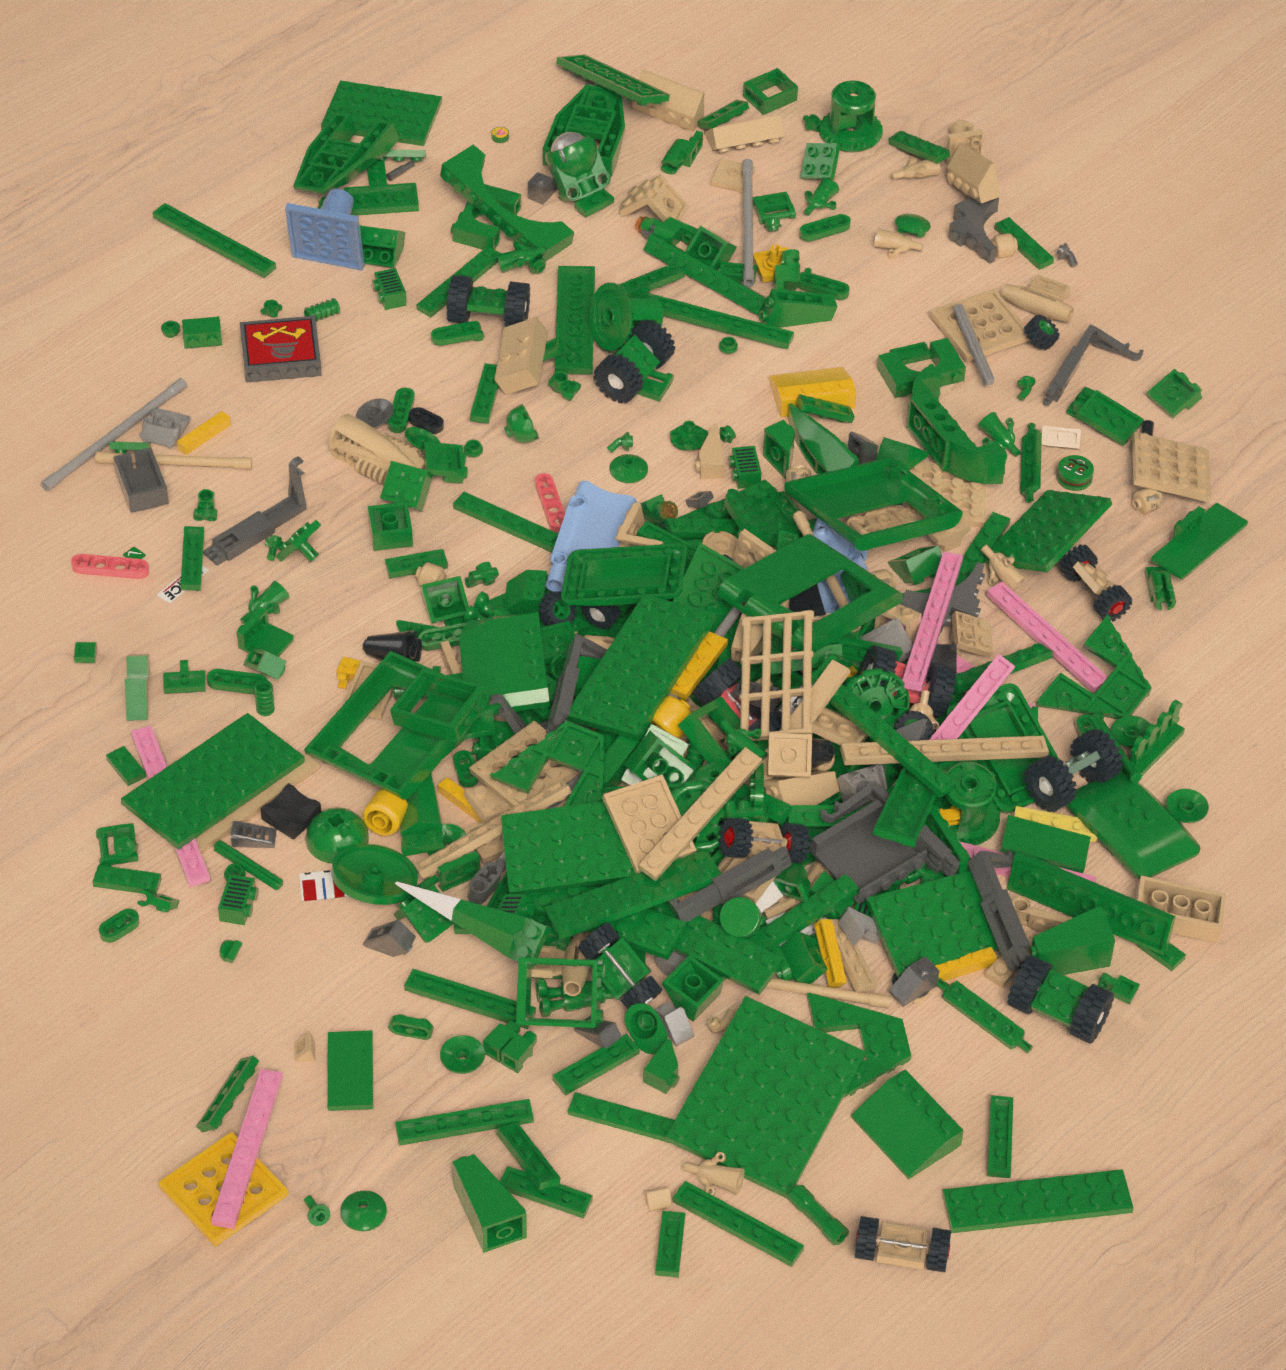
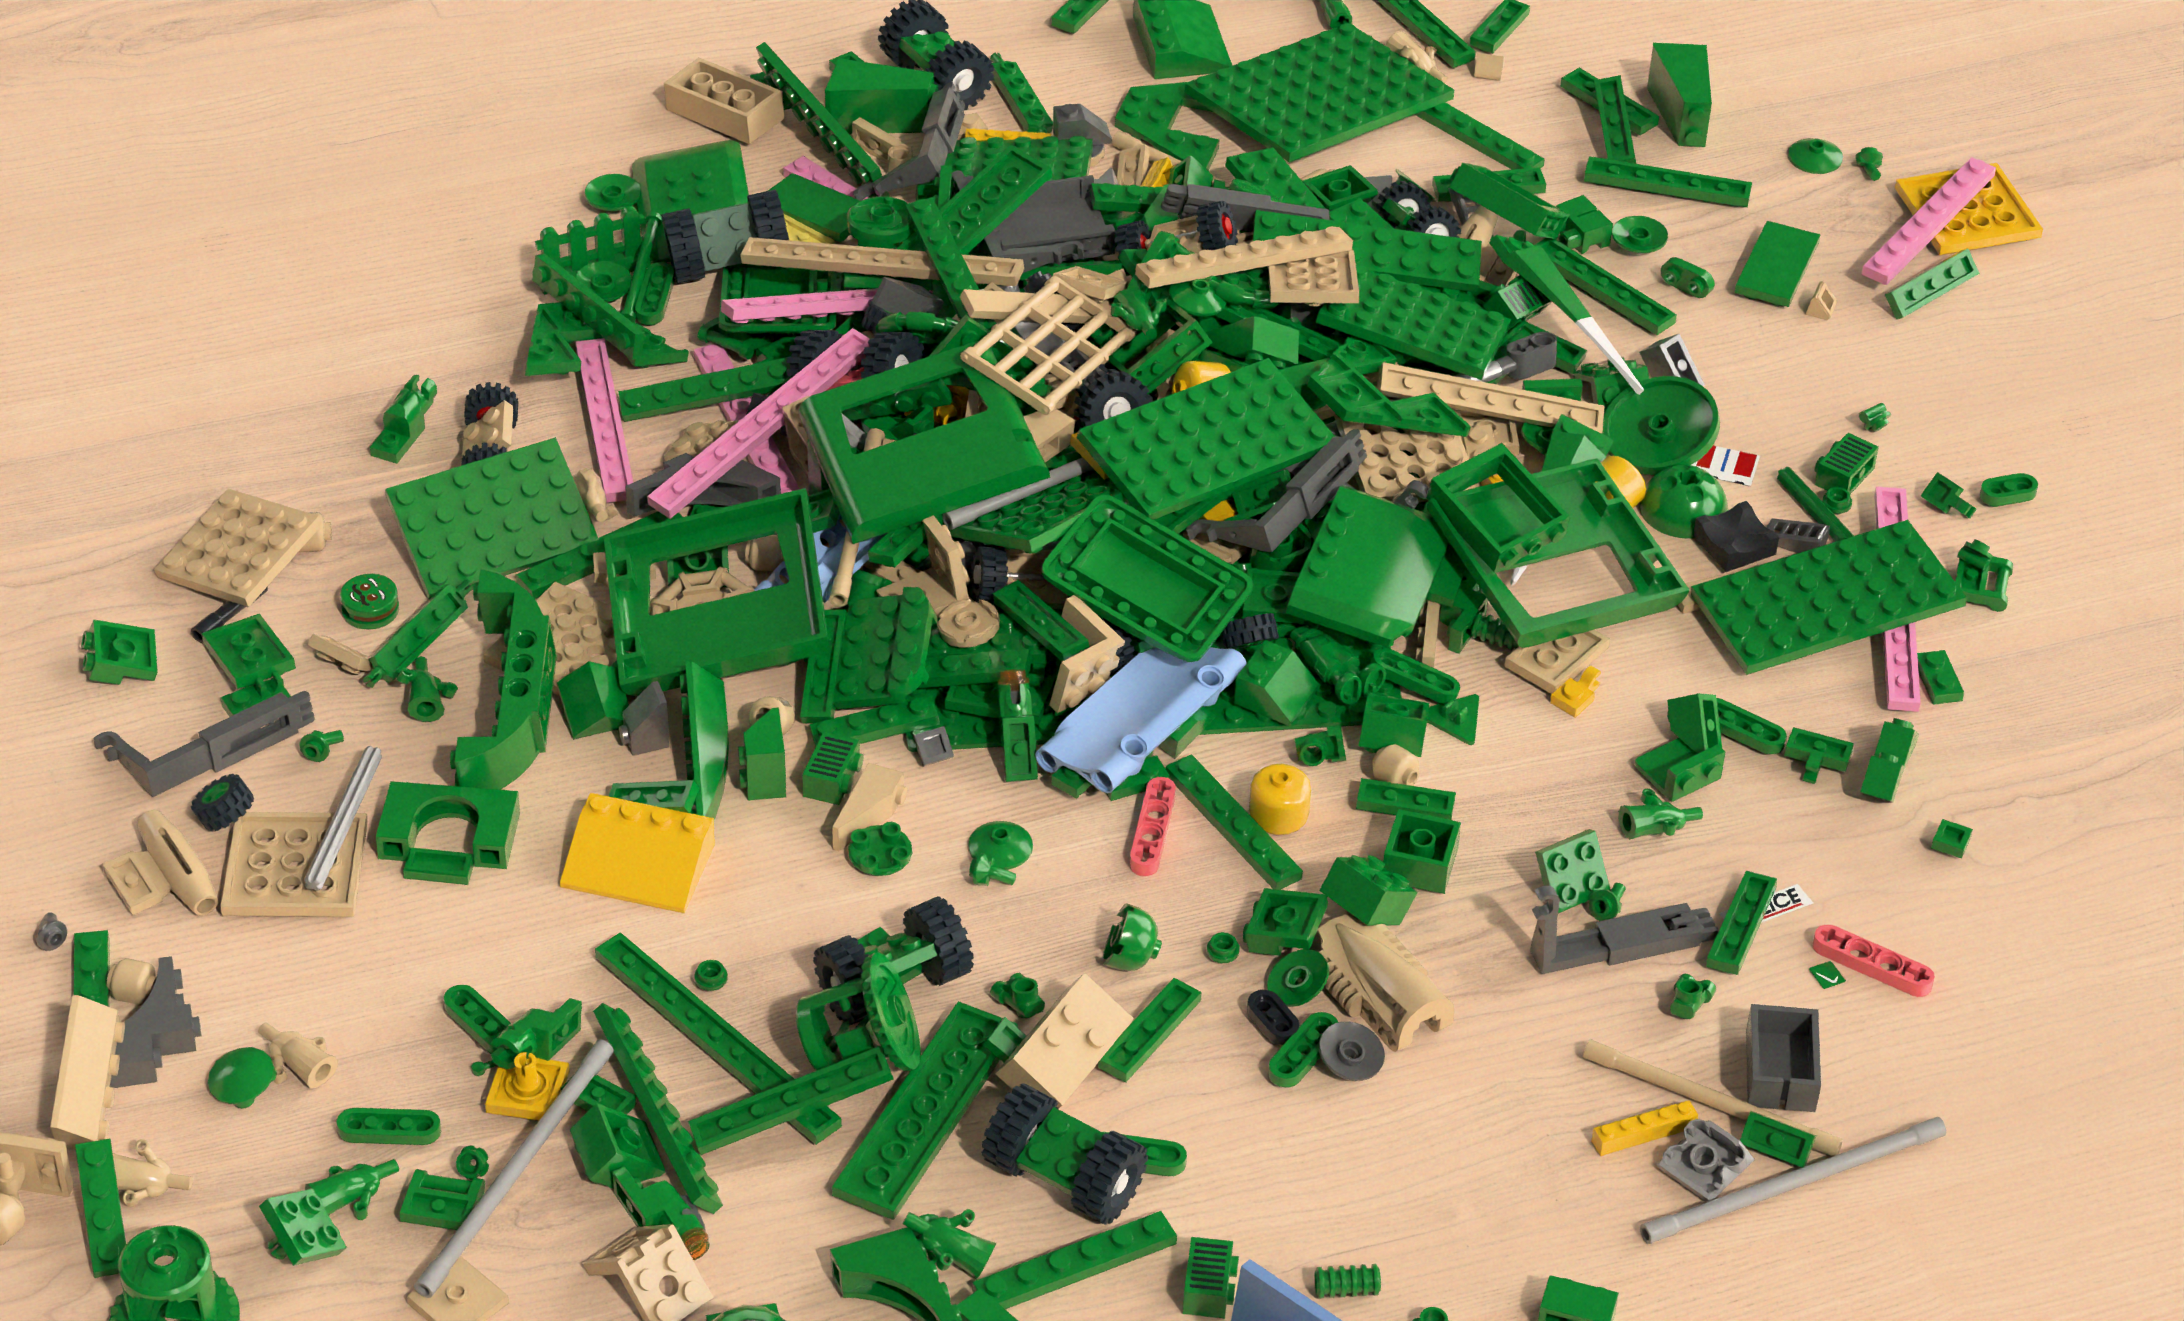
camera: 155 degrees left, 5 degrees down
(126, 879) = (1957, 531): green plate -> none
(264, 697) = (1717, 671): green piece -> none
(280, 349) = (1453, 1228): panel -> none
(402, 643) = (1502, 679): black cone -> none
(485, 529) = (1280, 799): none -> yellow head
(662, 1069) = (1419, 154): green slope -> none
(727, 434) = (820, 832): green plate -> none
(796, 308) = (556, 975): green slope -> none
(1115, 687) = (588, 306): none -> green plate
(1198, 538) = (297, 454): green bracket -> none

